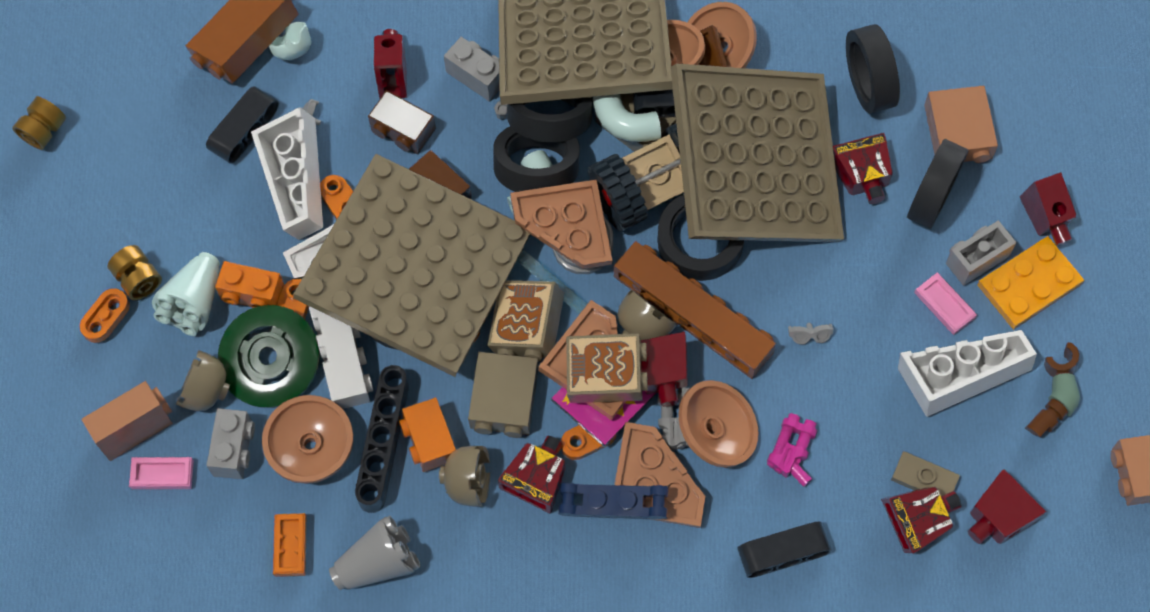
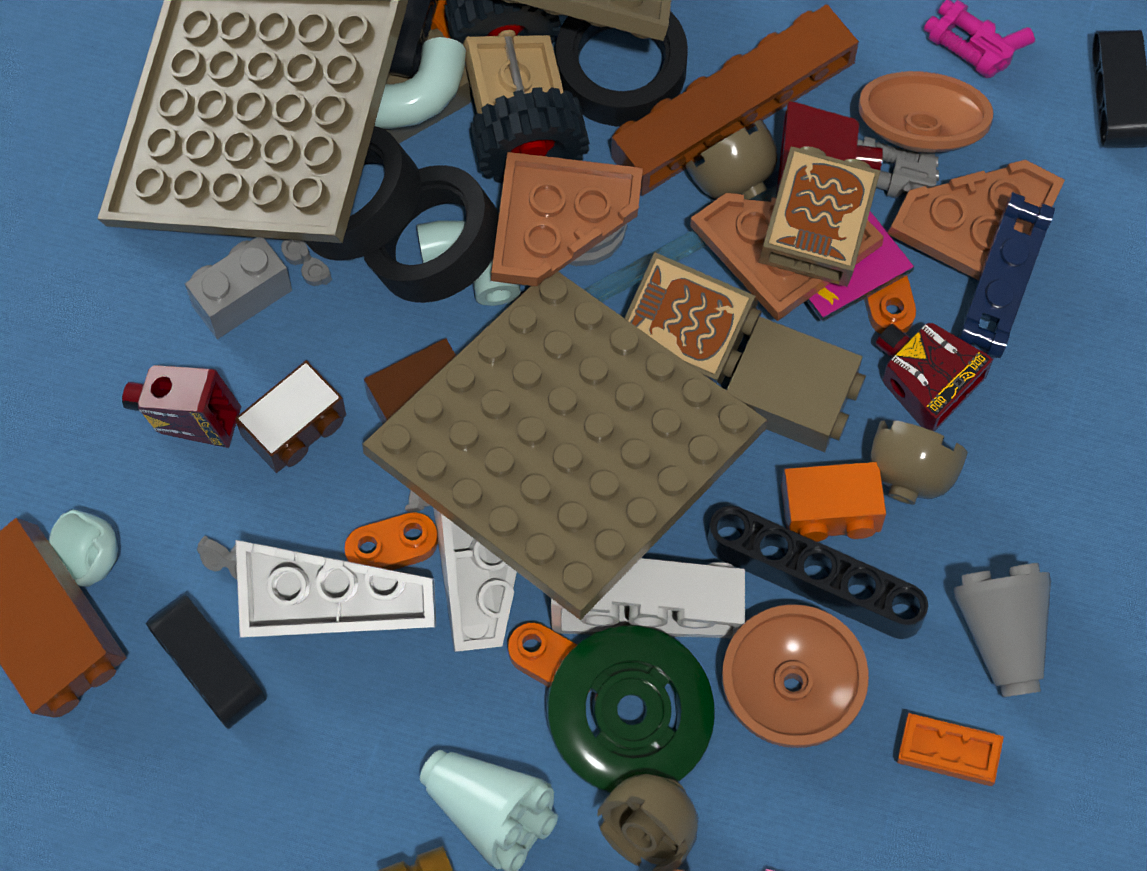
camera: 75 degrees left, 0 degrees up
(230, 444) = (765, 798): light grey brick -> none
(248, 285) = (505, 709): orange brick -> none

